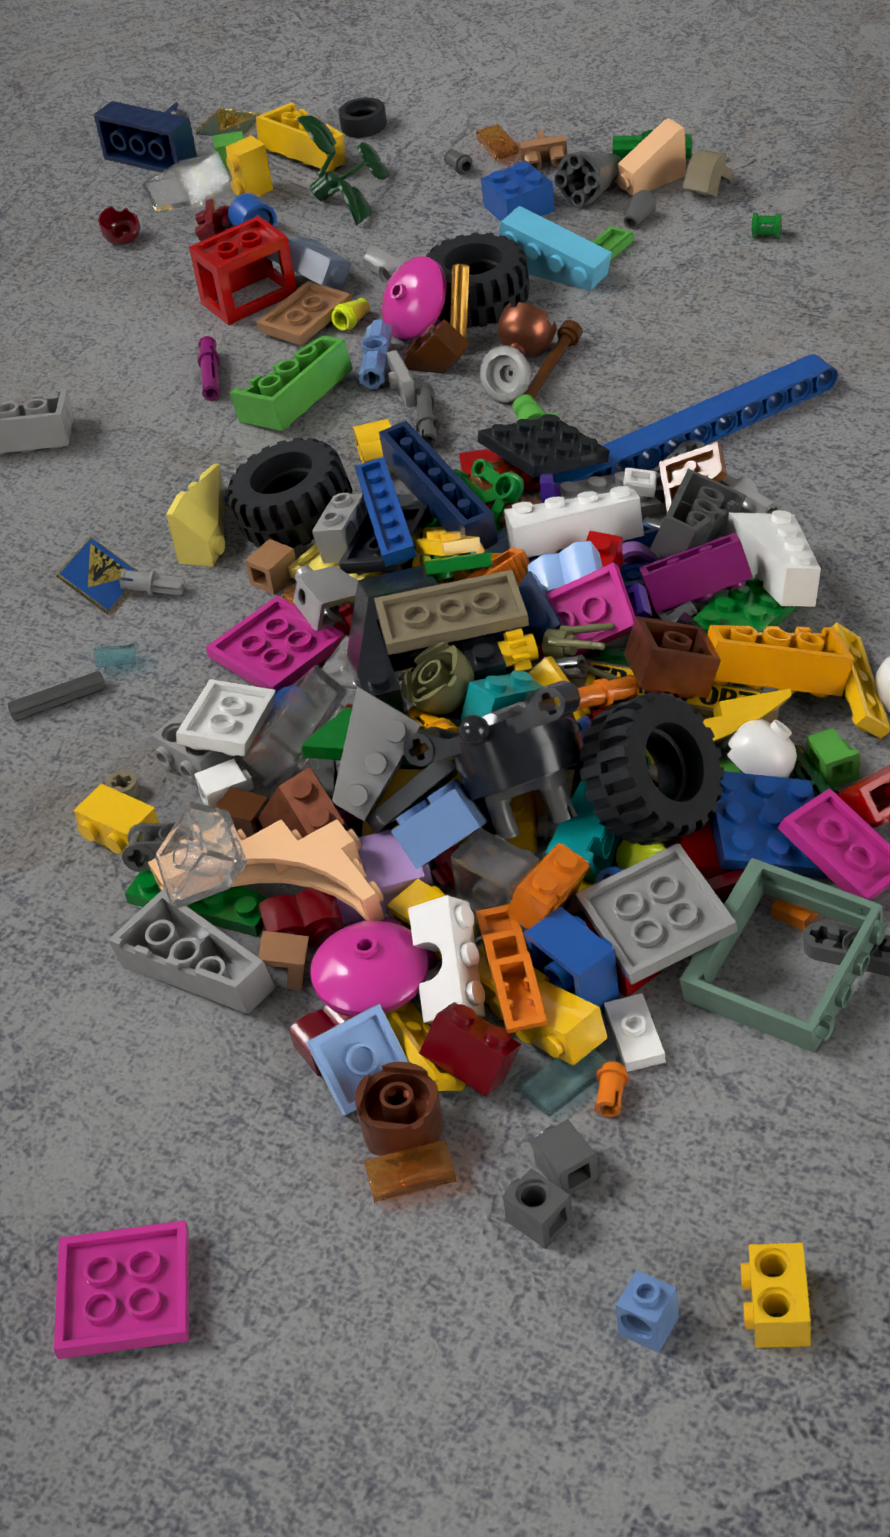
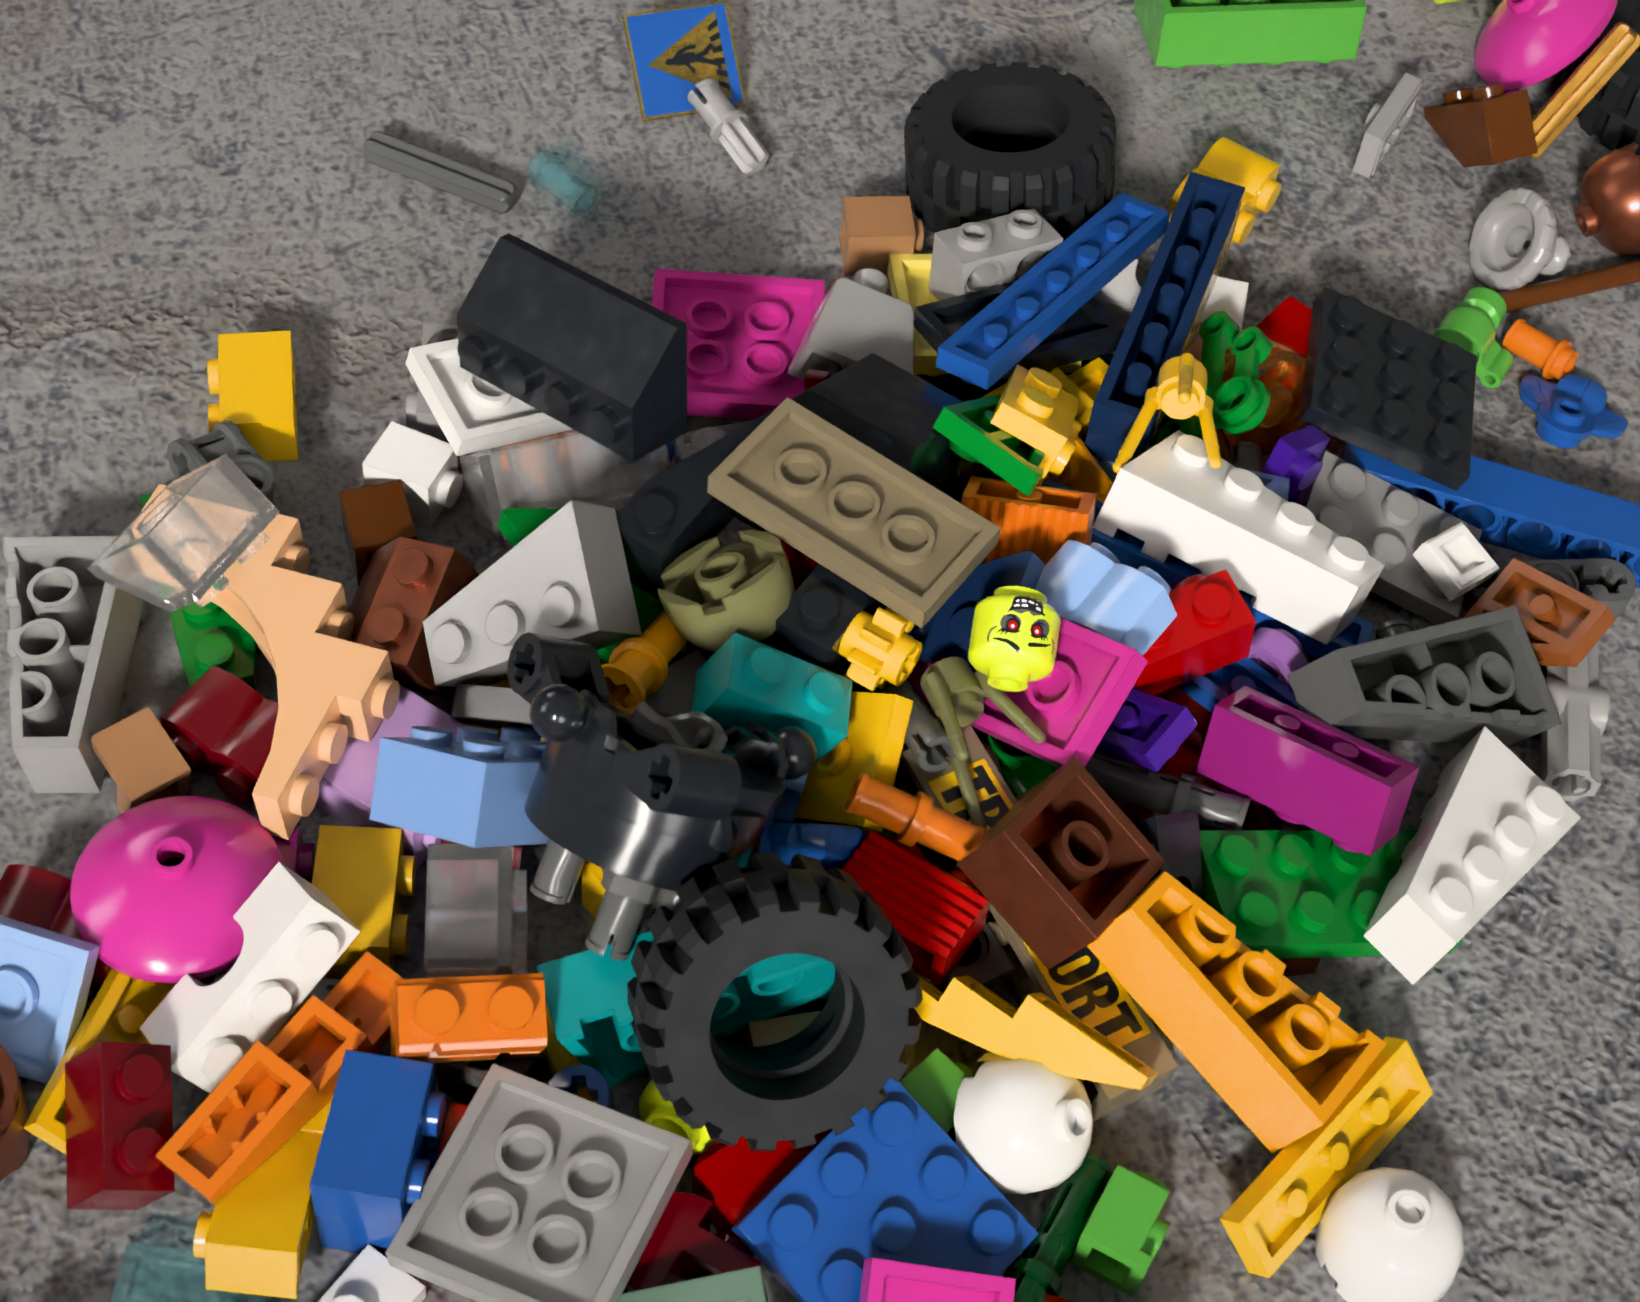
camera: 35 degrees right, 10 degrees up
(124, 779) = (332, 344): dark tan bush -> none
(198, 520) = (868, 86): light yellow wedge -> none
(256, 662) = (576, 349): none -> black slope
(374, 356) = (1406, 51): medium blue piece -> none
(426, 423) = (1332, 217): dark grey pin -> none
(493, 491) = (1180, 395): none -> yellow plant
(563, 402) = (1541, 350): none -> orange pin
(564, 599) = (1014, 638): none -> neon yellow head
(599, 413) = (1570, 410): none -> blue plate

